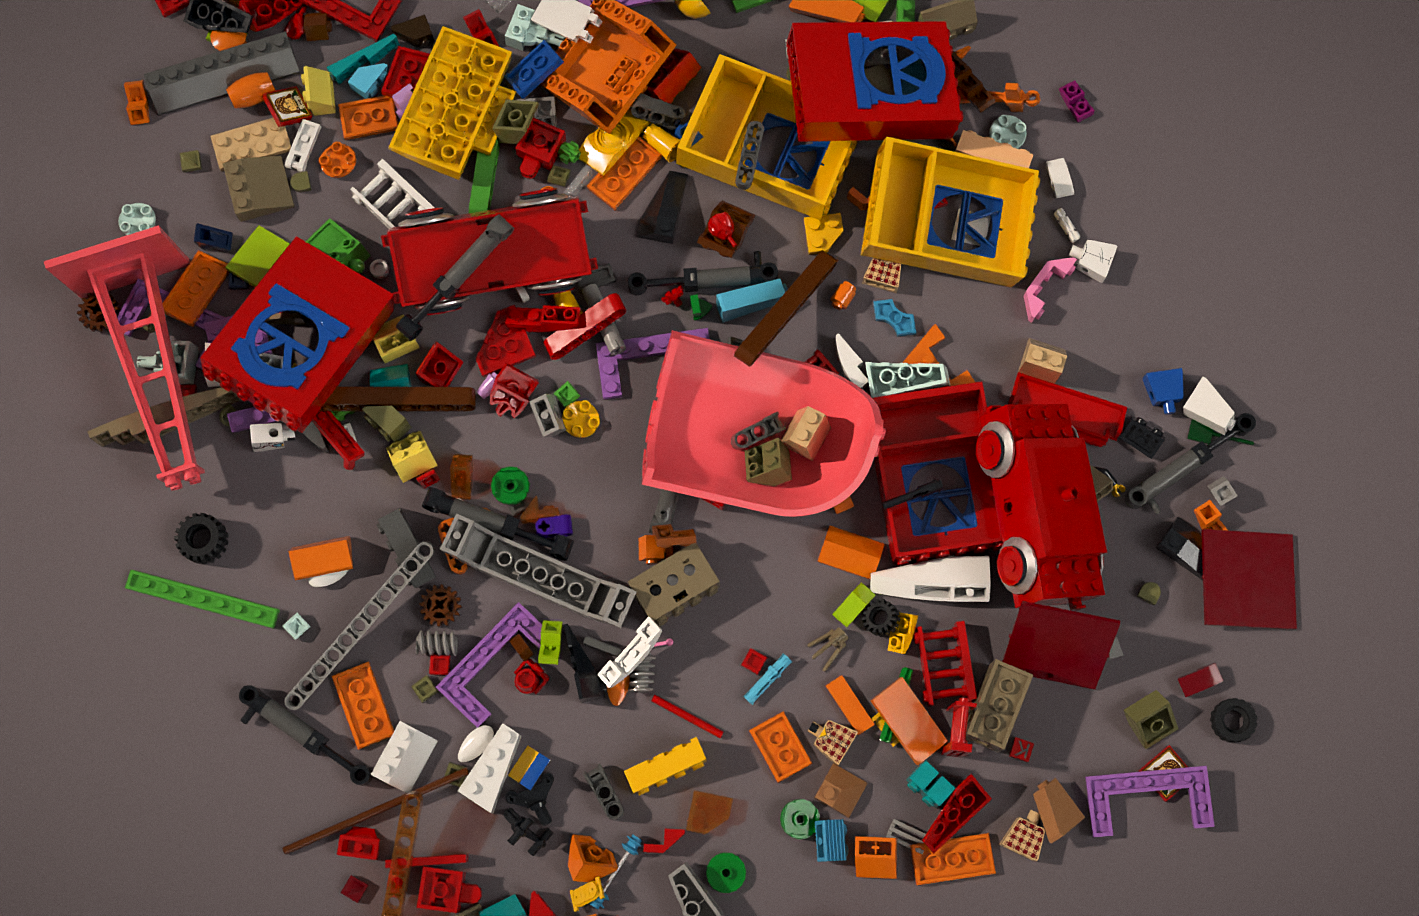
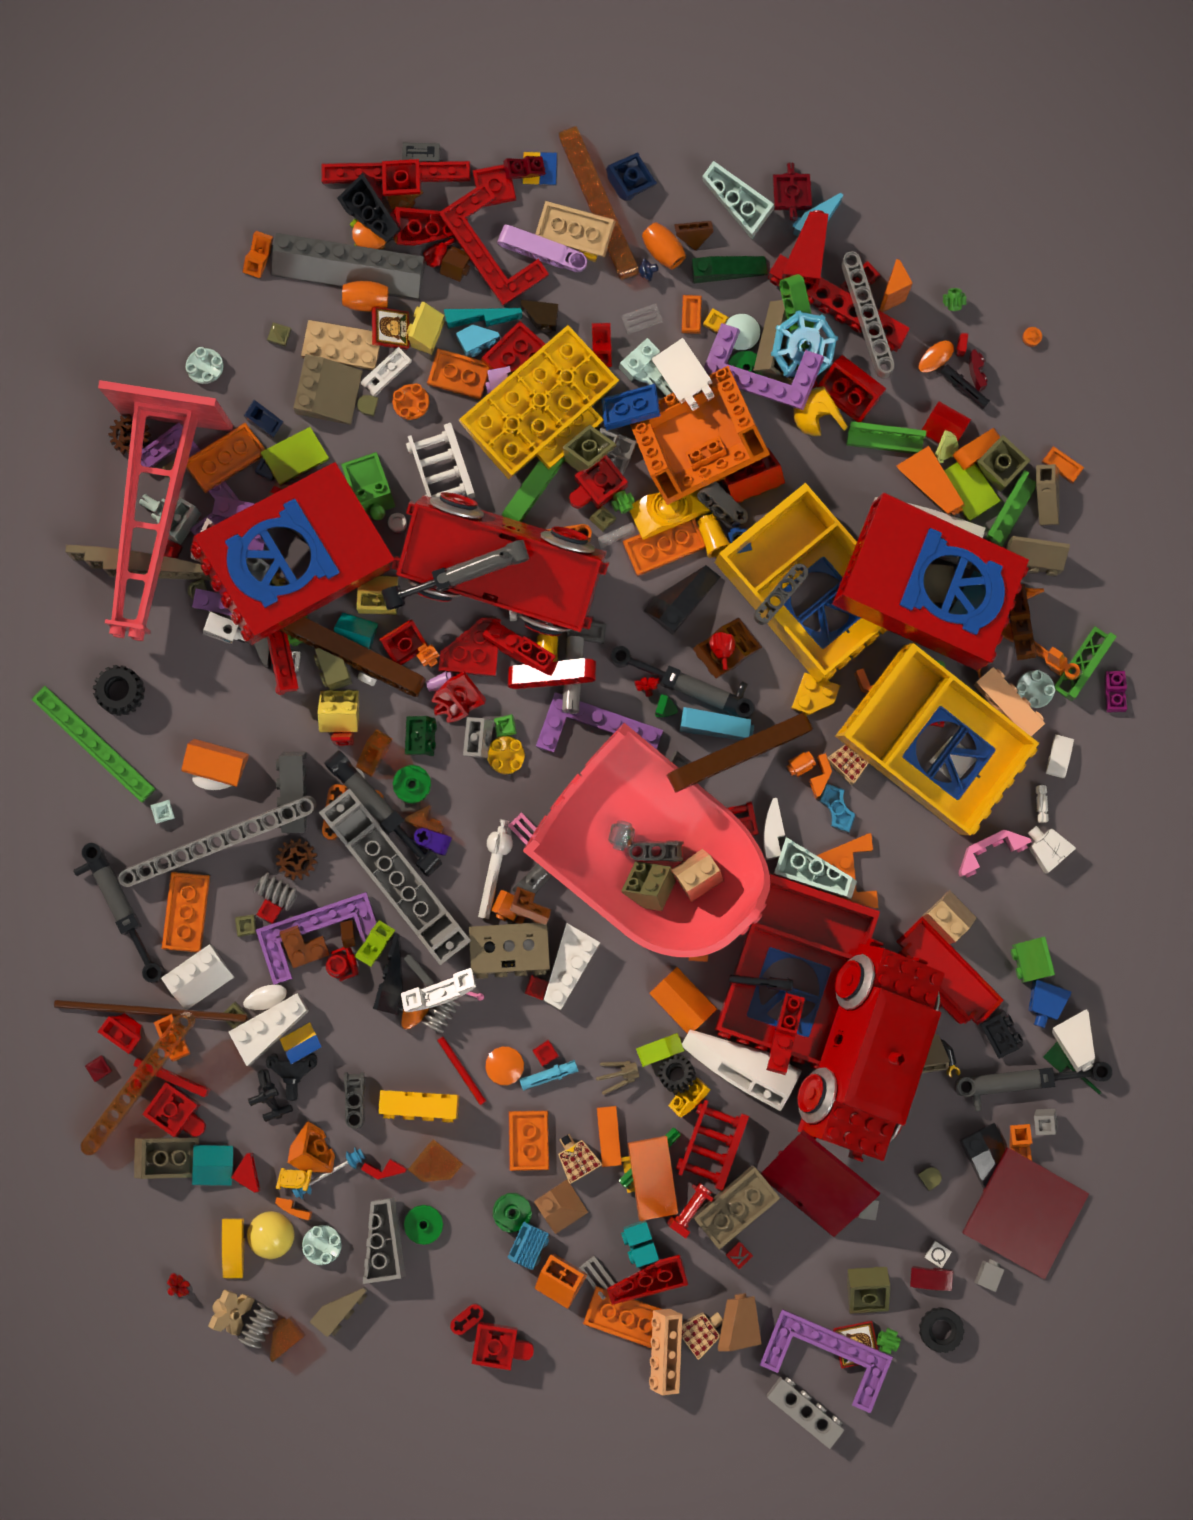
camera: 25 degrees right, 5 degrees up
(421, 416) = (366, 679): none -> white tile
(423, 830) = (161, 1026): none -> orange slope
(466, 367) = (427, 655): none -> orange gear
(486, 685) = (300, 951): none -> dark orange plate
(495, 440) = (420, 735): none -> dark green bracket
(616, 499) = (499, 844): none -> white piece
(633, 468) = (516, 821): none -> bright pink tile
(715, 608) = (536, 987): none -> red tile
(720, 433) = (621, 835): none -> clear light blue head
(723, 691) = (504, 1065): none -> orange dish
(734, 568) = (571, 960): none -> white wedge
(867, 304) = (818, 783): none -> orange slope
(958, 528) = (785, 1034): none -> red slope
(1005, 869) = (666, 1351): none -> light nougat brick
(1044, 89) = (1090, 667): none -> bright green fence
(1134, 356) = (1032, 959): none -> bright green slope
(1188, 859) = (827, 1435): none -> light grey brick
(1193, 656) = (938, 1254): none -> white tile
(1193, 754) = (888, 1341): none -> bright green gear
(1248, 649) = (989, 1275): none -> light grey brick

